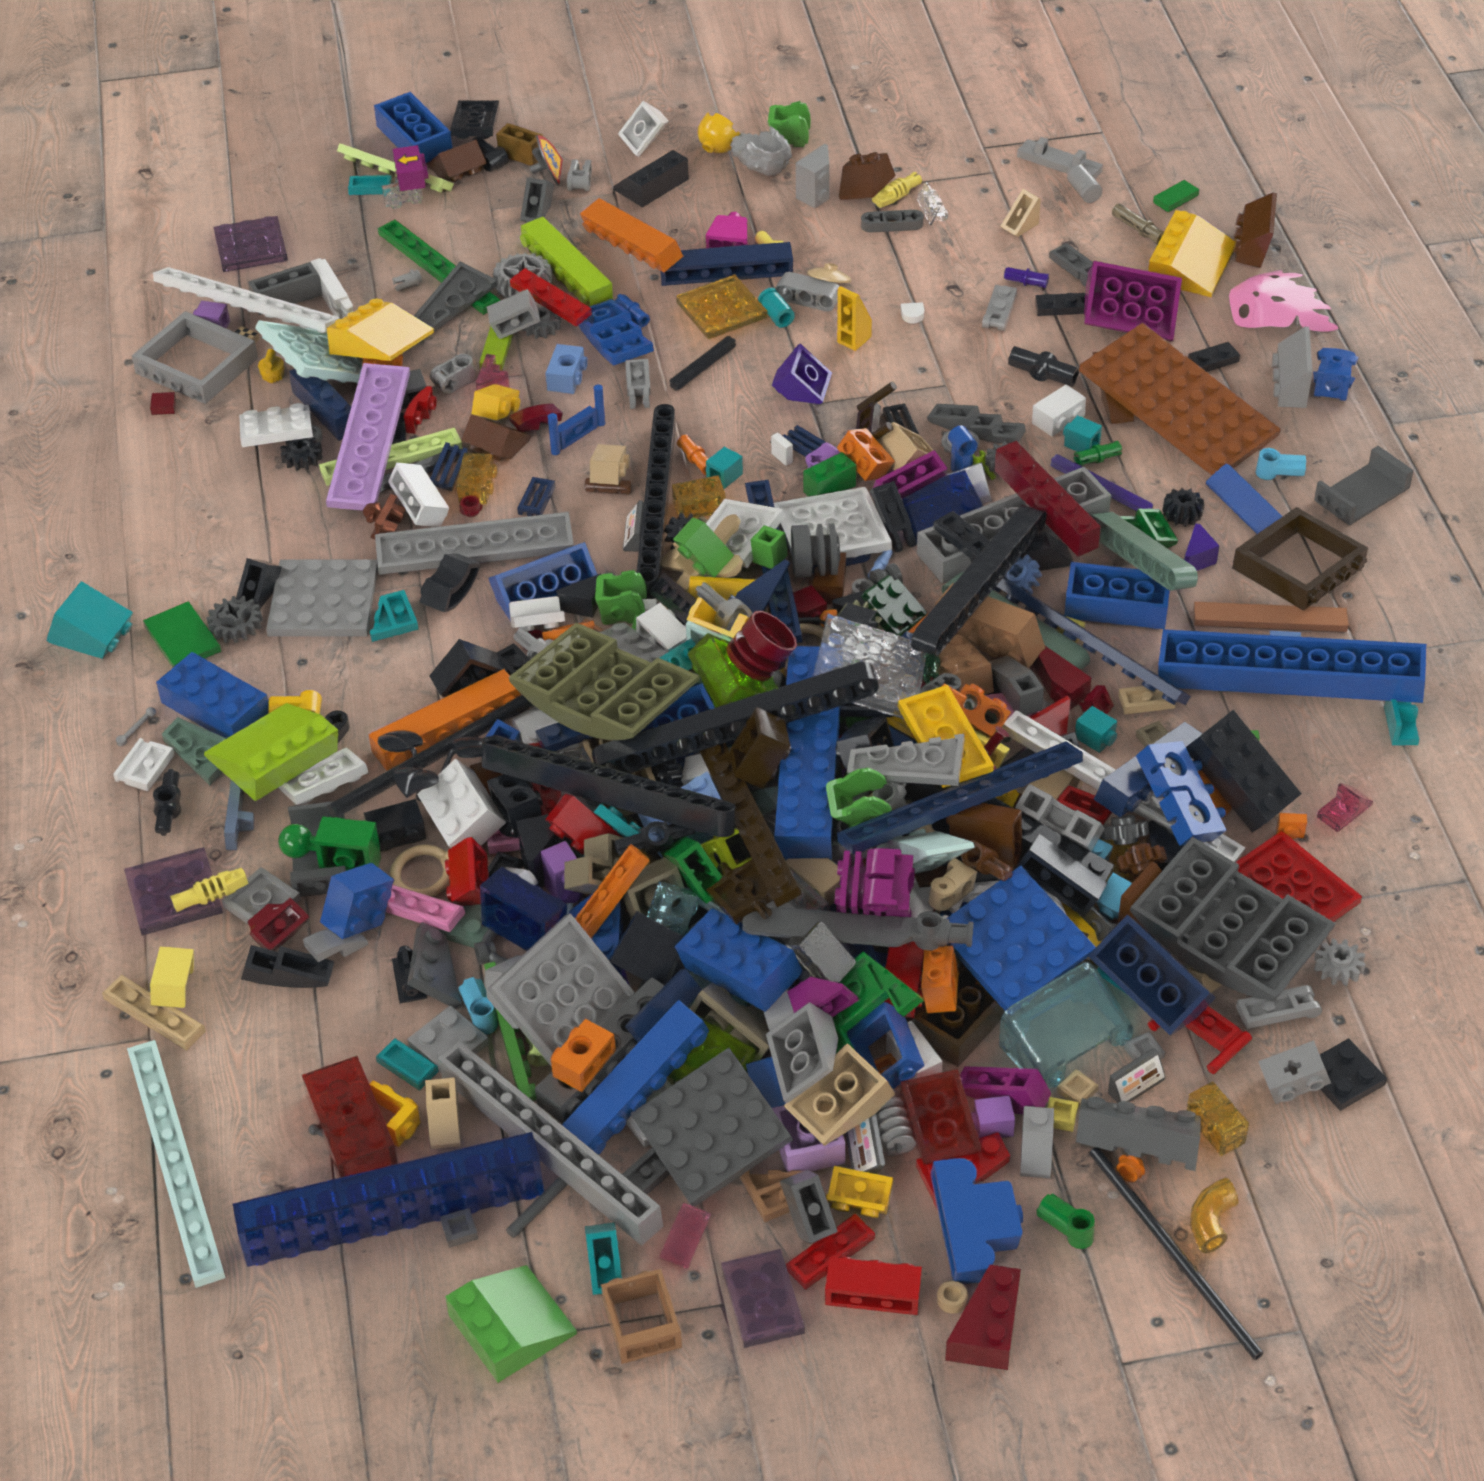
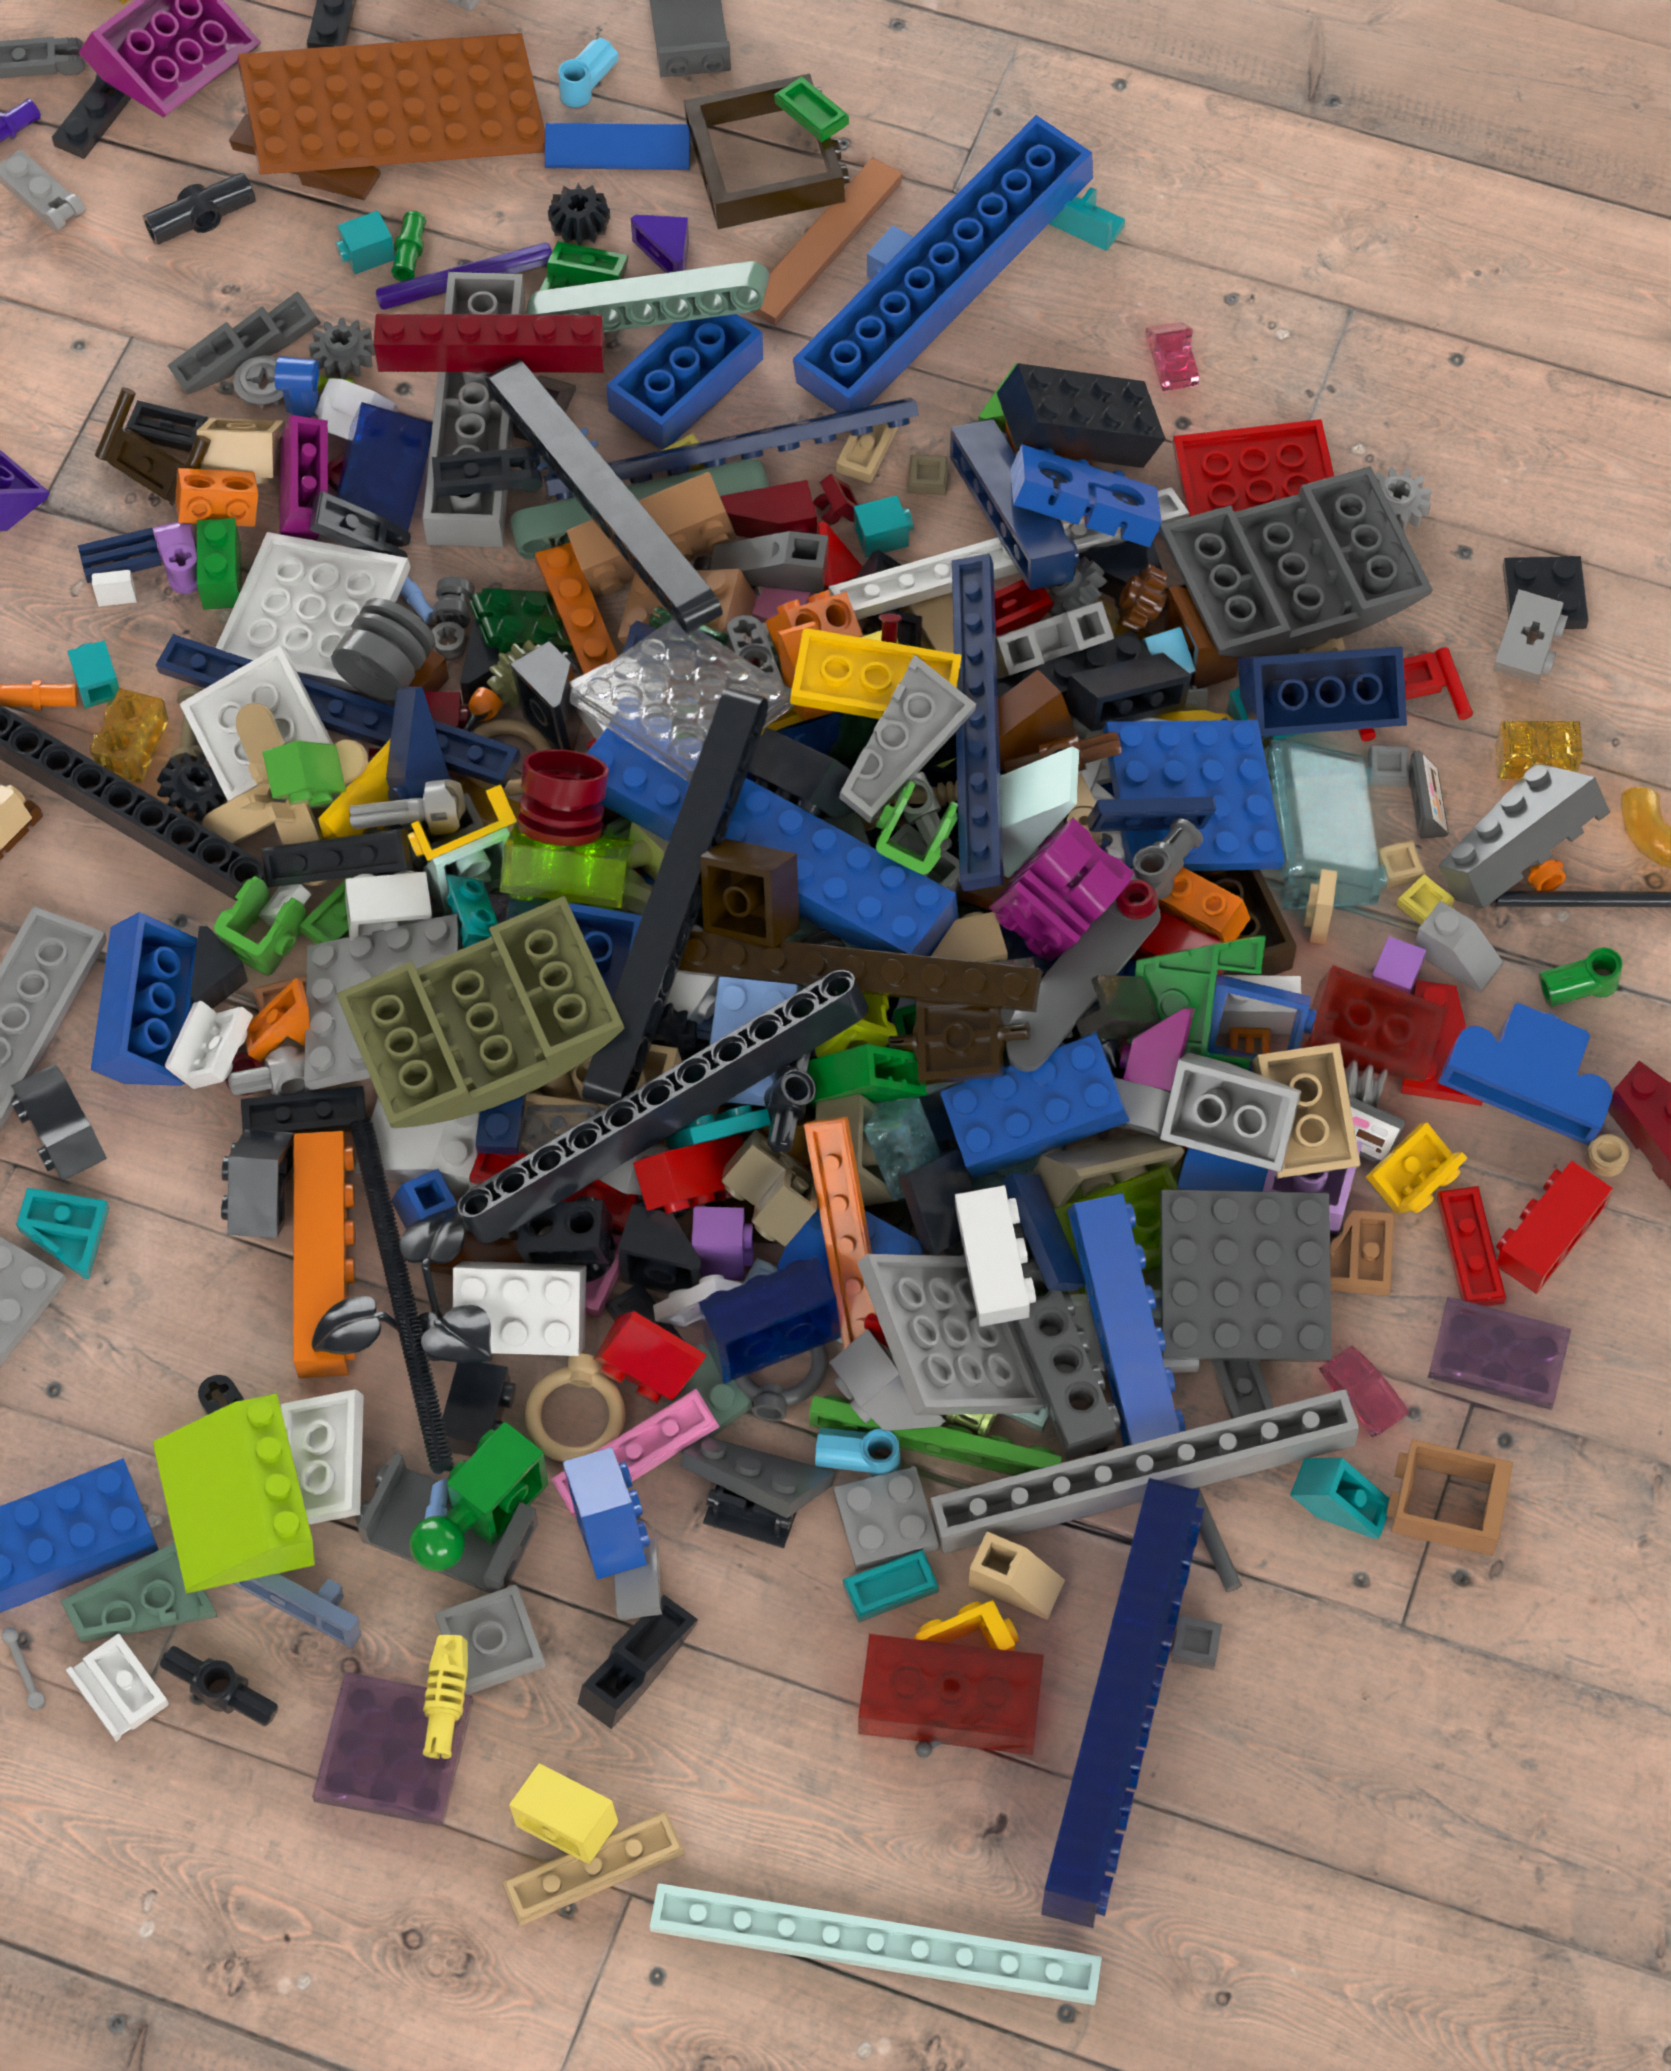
camera: 60 degrees left, 15 degrees up
(277, 924) = (554, 1638): dark red slope -> none
(307, 700) = (156, 1419): yellow piece -> none
(508, 1320) = (1368, 1650): bright green slope -> none
(583, 1054) = (1066, 1336): orange brick -> none
(625, 985) = (994, 1255): none -> white brick
(633, 528) = (123, 842): dark grey slope -> none
(769, 547) = (340, 698): bright green brick -> none
(808, 1206) = (1420, 1232): dark grey brick -> none
(895, 923) = (1137, 891): none -> dark red plate
(968, 910) = (1149, 813): none -> dark blue tile
(1004, 1048) = (1320, 906): none -> tan plate
(1022, 1085) = (1360, 935): magenta slope -> none
(1058, 409) = (298, 240): white brick -> none
(1261, 1012) = (1414, 623): light grey plate -> none
(1292, 824) = (1174, 419): orange plate -> none
(1340, 557) = (811, 109): none -> green tile

